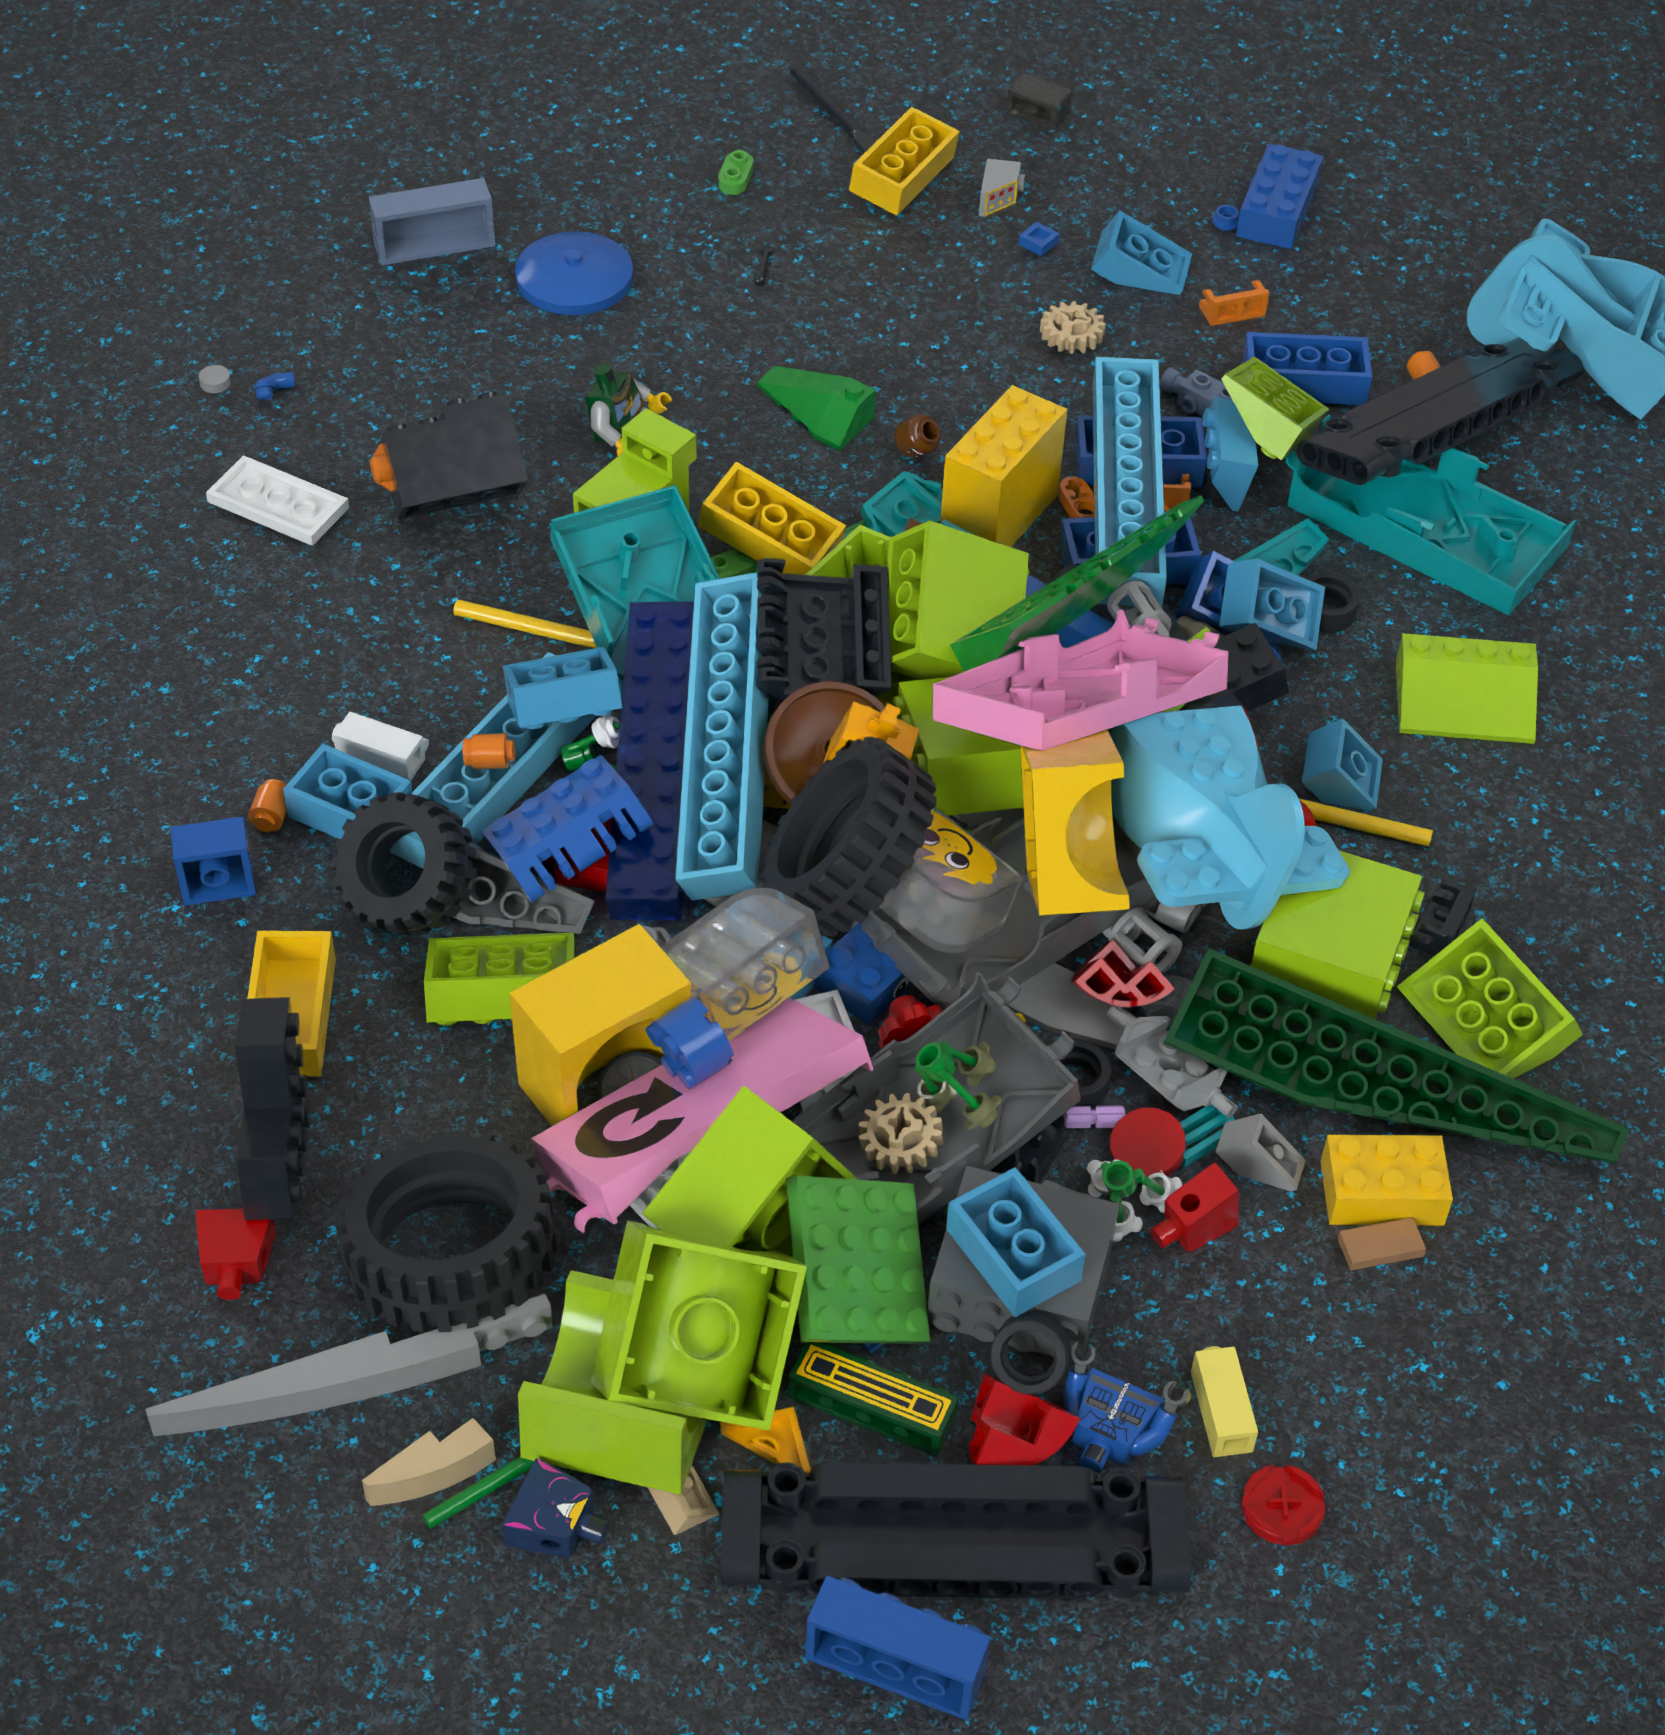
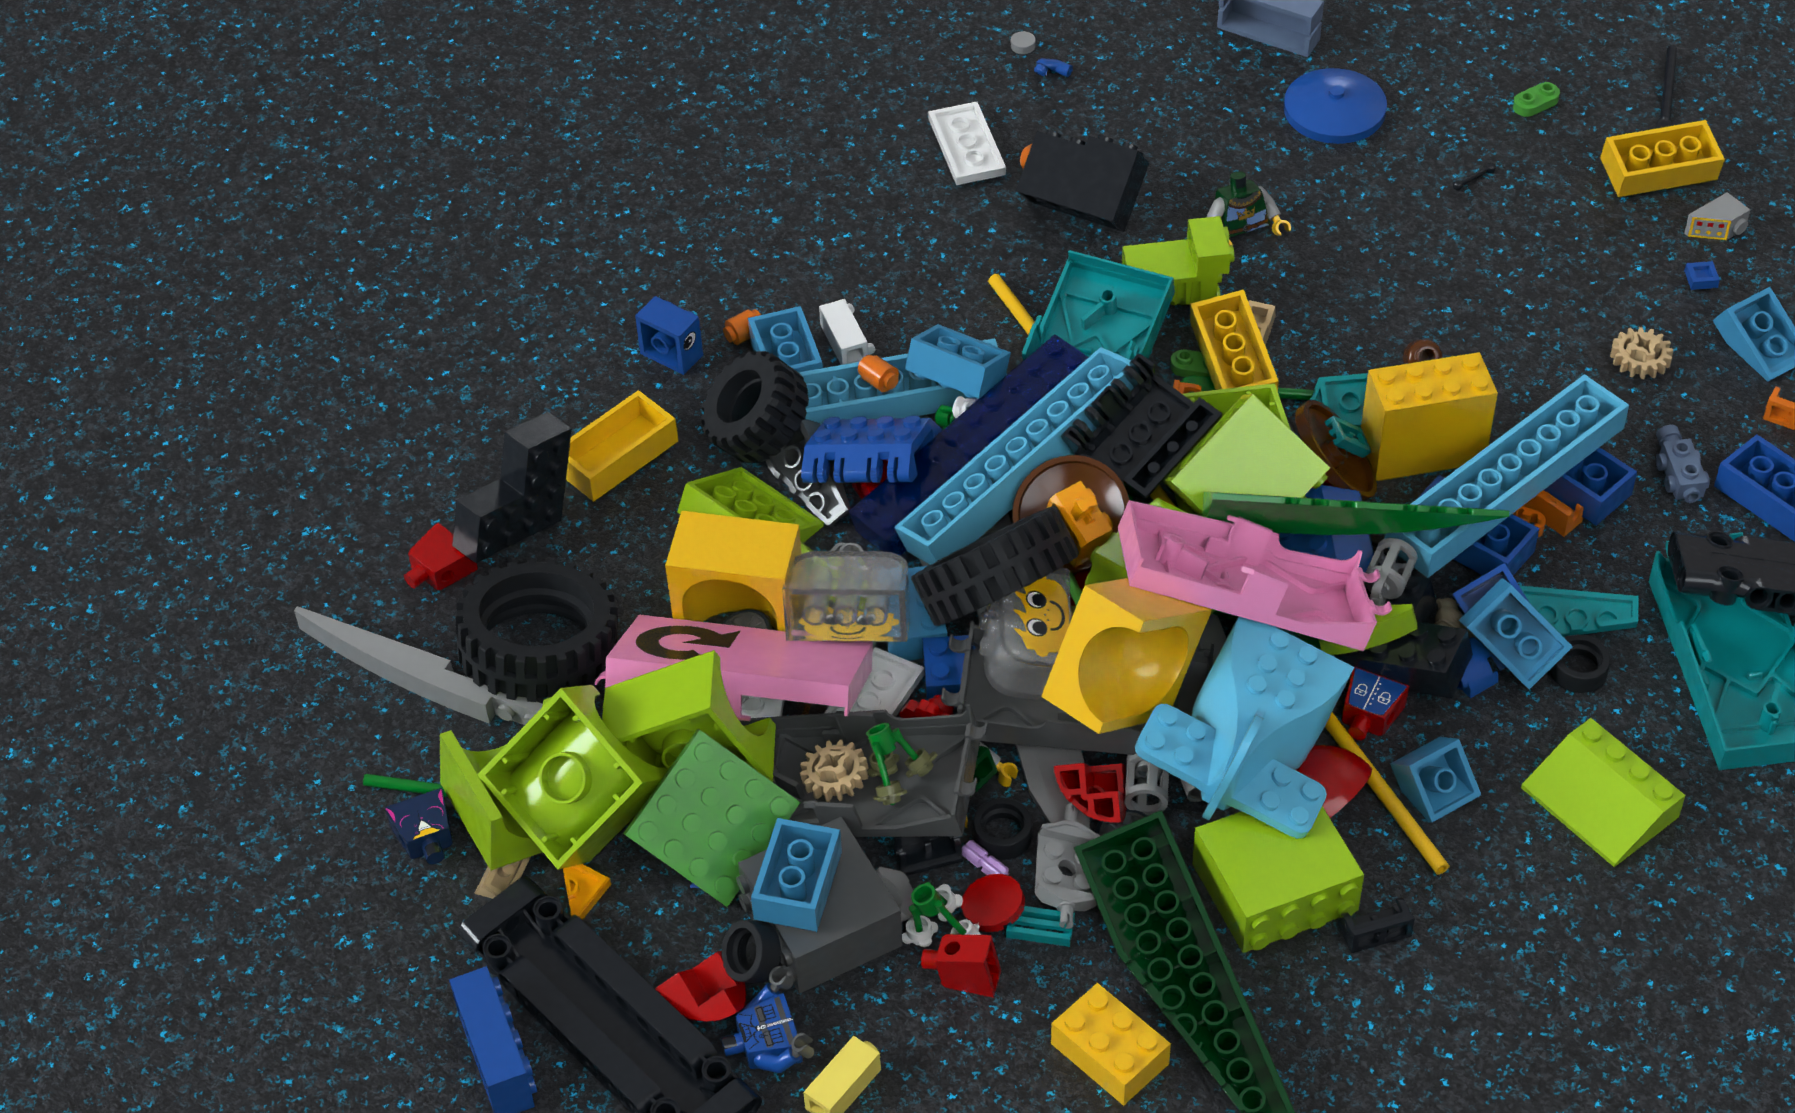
camera: 50 degrees right, 0 degrees up
(430, 1465) = (397, 751): tan slope -> none
(690, 1043) = (758, 619): blue brick -> none
(827, 404) = (1390, 296): green wedge -> none
(873, 1397) = (655, 910): brick -> none
(1231, 451) = (1629, 507): dark azure slope -> none
(1260, 1152) = (1054, 965): light grey slope -> none
(1273, 407) = (1691, 492): lime slope -> none
(1381, 1243) = (1064, 1080): medium nougat tile -> none
(1490, 1004) = (1330, 1001): lime slope -> none

